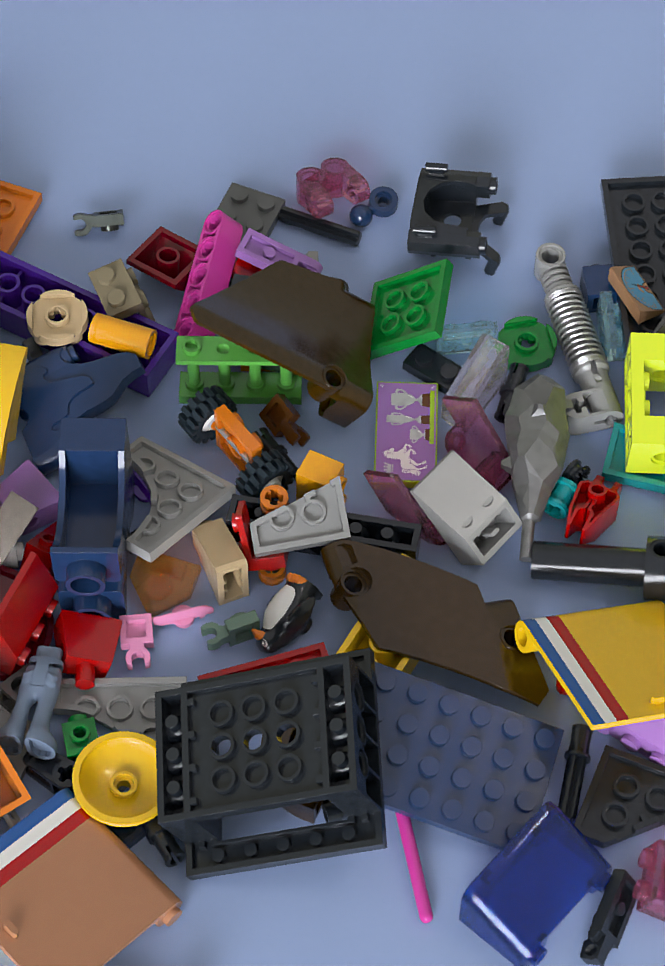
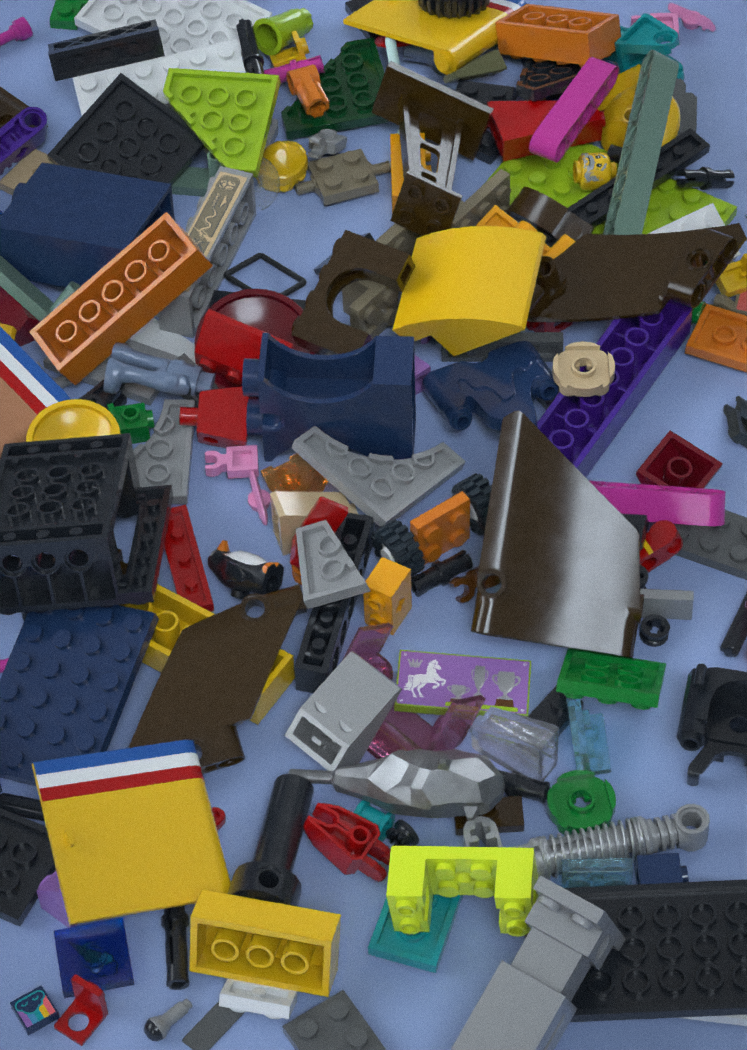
camera: 95 degrees right, 5 degrees down
(119, 291) = (623, 432): dark tan bracket -> none
(122, 335) = (561, 414): light orange pin -> none
(235, 631) = (237, 538): sand green plate -> none
(264, 251) = (666, 551): medium lavender plate -> none
(271, 492) = (357, 536): orange bush -> none
(634, 293) = (633, 893): slope -> none

